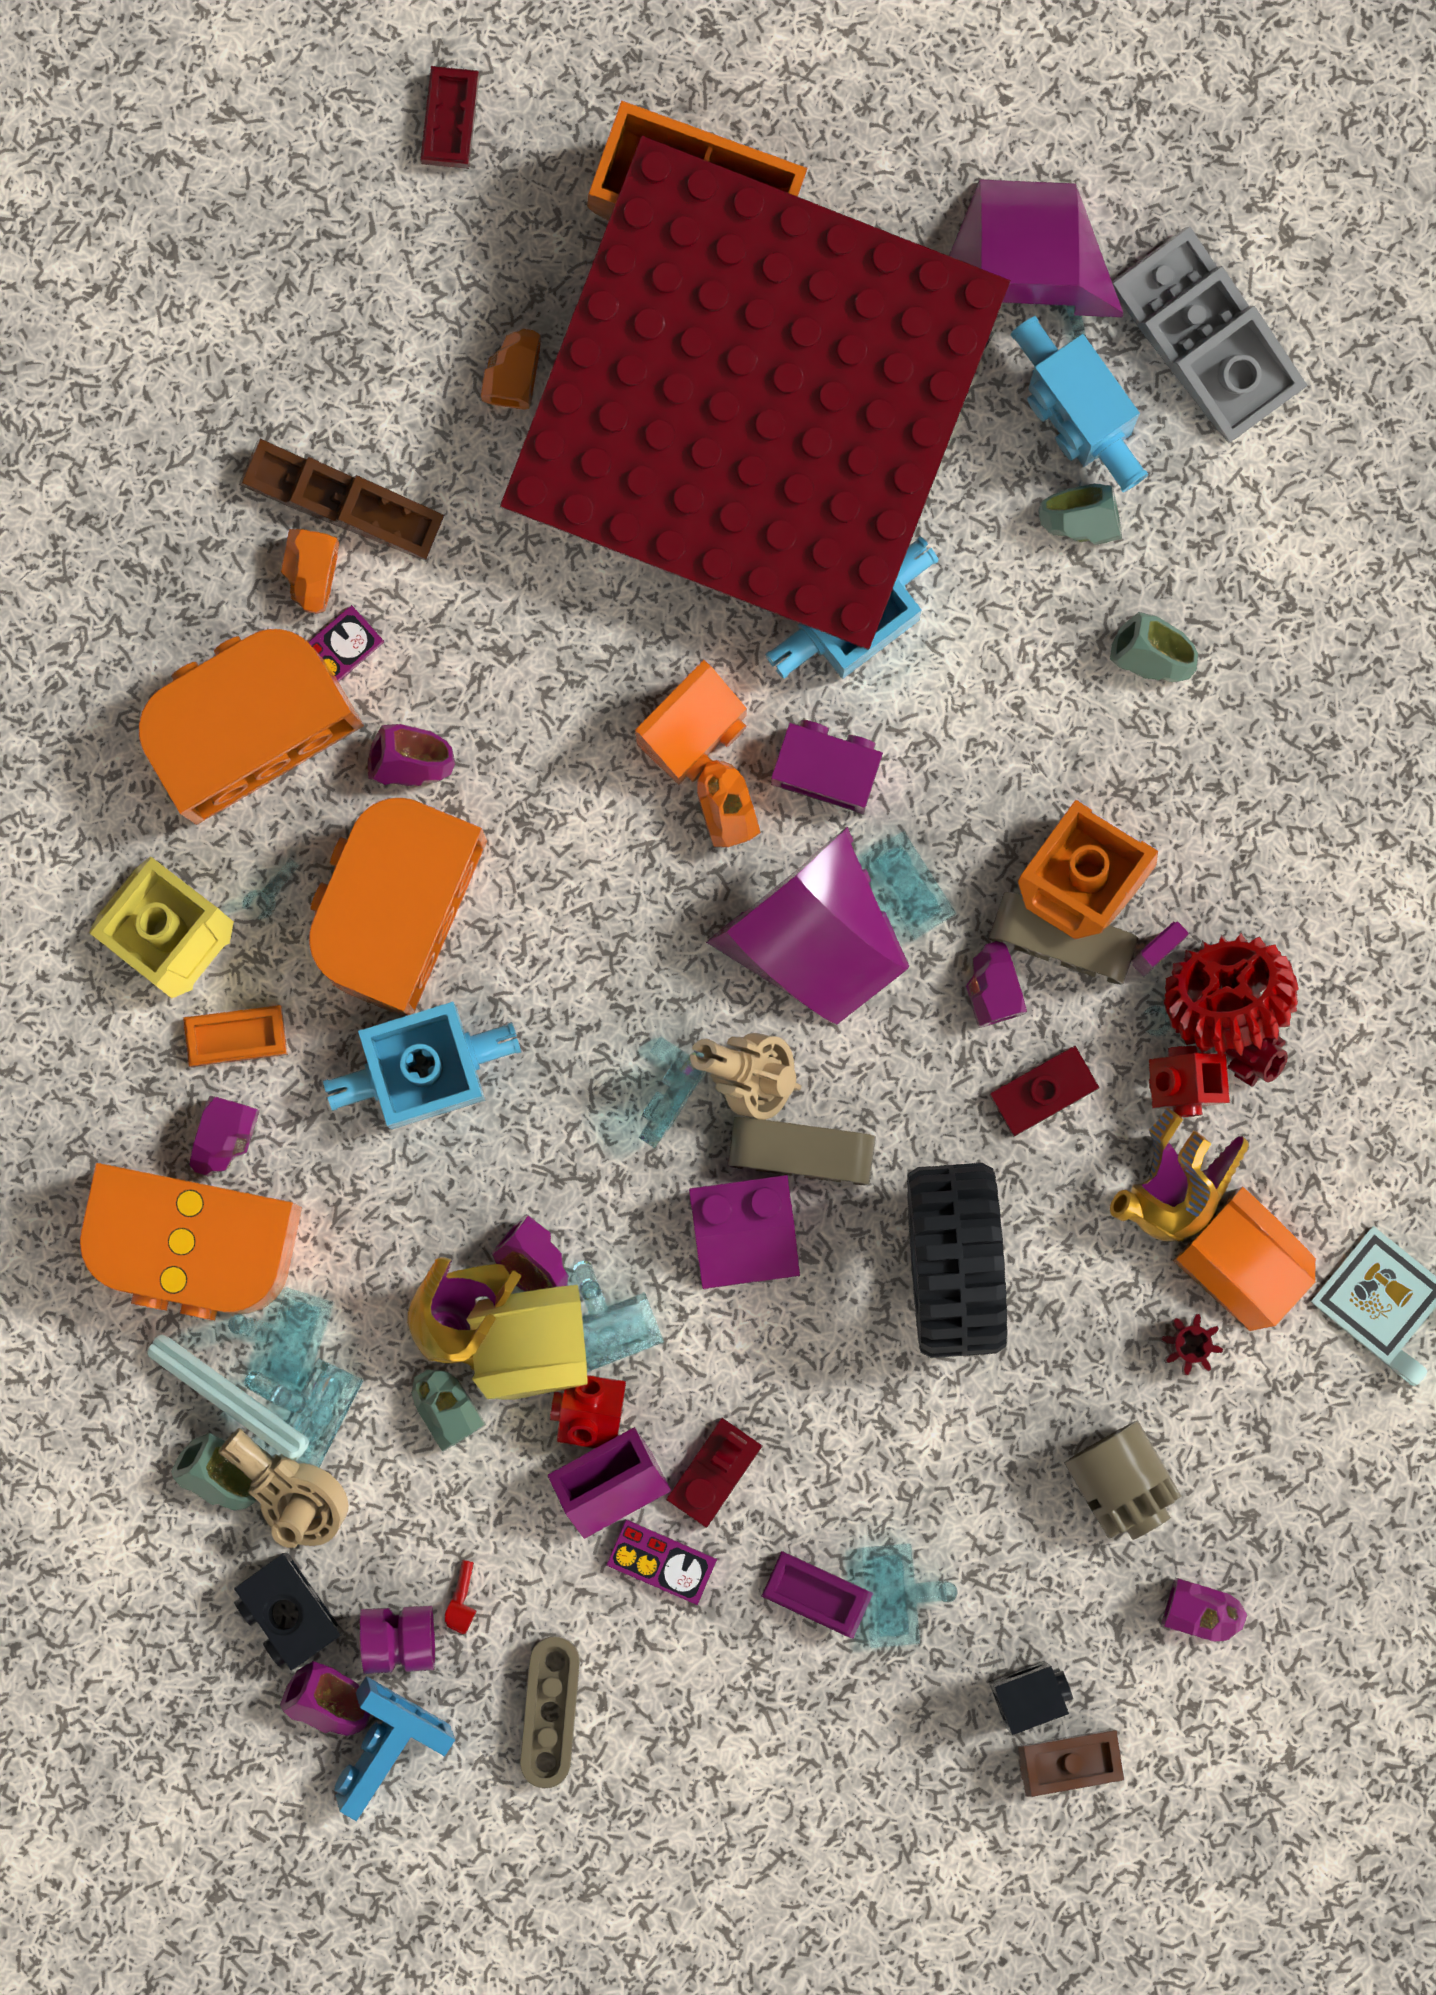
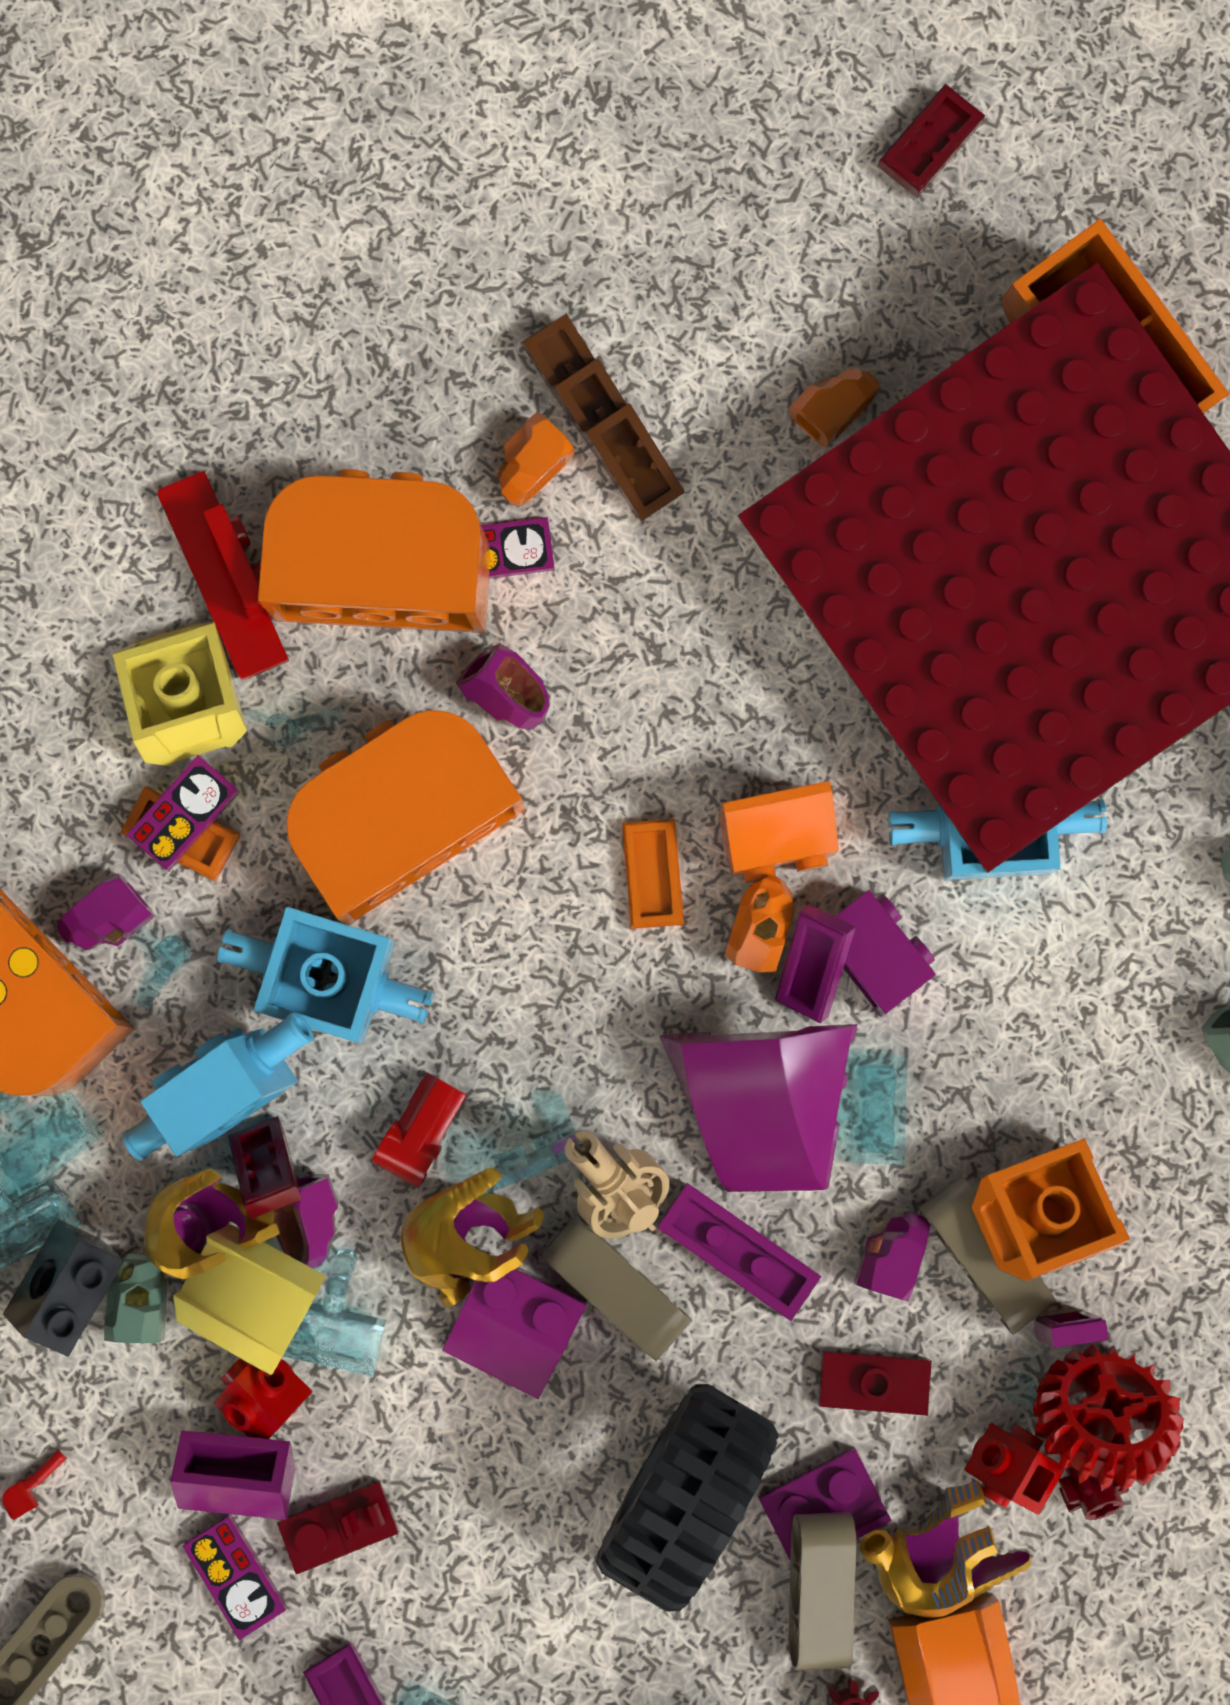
camera: 30 degrees right, 0 degrees up
(132, 814) = (223, 574): none -> red bracket
(228, 1017) = (183, 813): none -> tile
(293, 1131) = (173, 955): none -> clear light blue hand
(384, 1432) = (63, 1288): none -> black brick
(401, 1204) = (217, 1088): none -> medium azure brick
(474, 1239) = (264, 1167): none -> dark red plate
(574, 1142) = (416, 1137): none -> red piece
(618, 823) = (652, 874): none -> orange tile
(647, 1208) = (437, 1229): none -> pearl gold piece
(786, 806) = (814, 963): none -> magenta tile
(875, 1062) = (739, 1251): none -> magenta plate
(1069, 1210) = (830, 1487): none -> magenta plate
(1107, 1268) = (822, 1590): none -> dark tan beam

